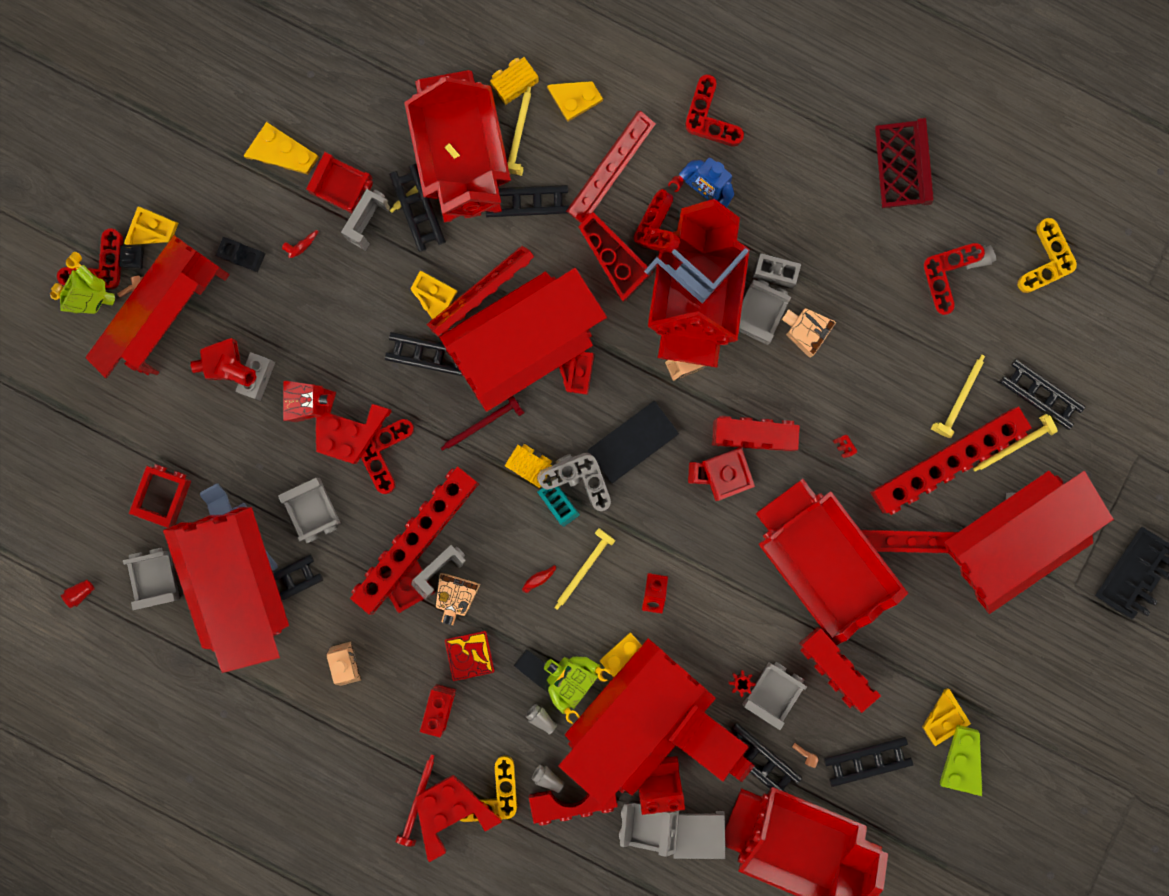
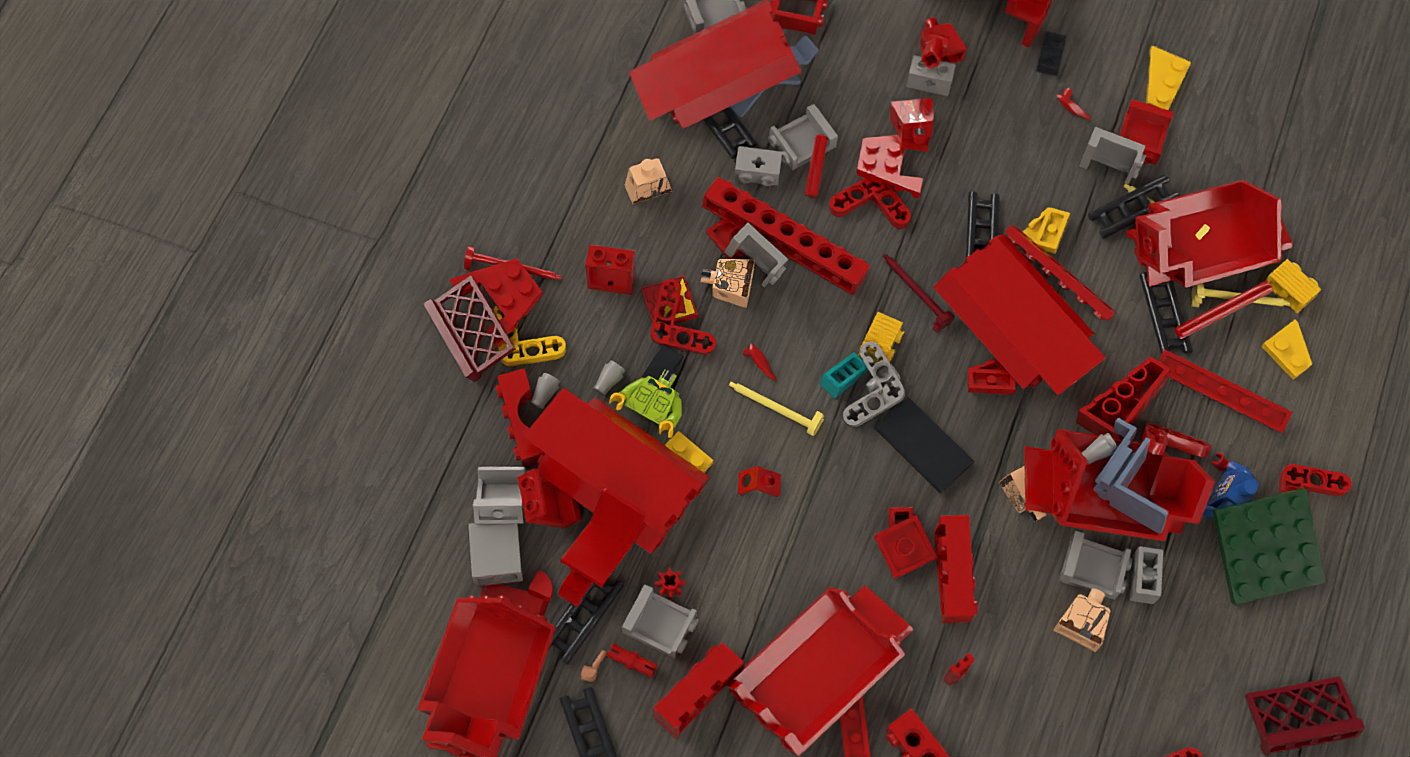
camera: 80 degrees right, 20 degrees down
(334, 545) = (758, 166): none -> light grey brick
(342, 501) = (816, 166): none -> red axle
(485, 862) = (456, 342): none -> fence
(501, 656) = (673, 330): none -> red beam
(533, 149) = (1223, 310): none -> red axle
(667, 289) = (1100, 448): none -> light grey cone
(732, 795) = (541, 586): none -> red tile
(762, 160) = (1268, 546): none -> dark green plate
(804, 722) = (632, 660): none -> red pin

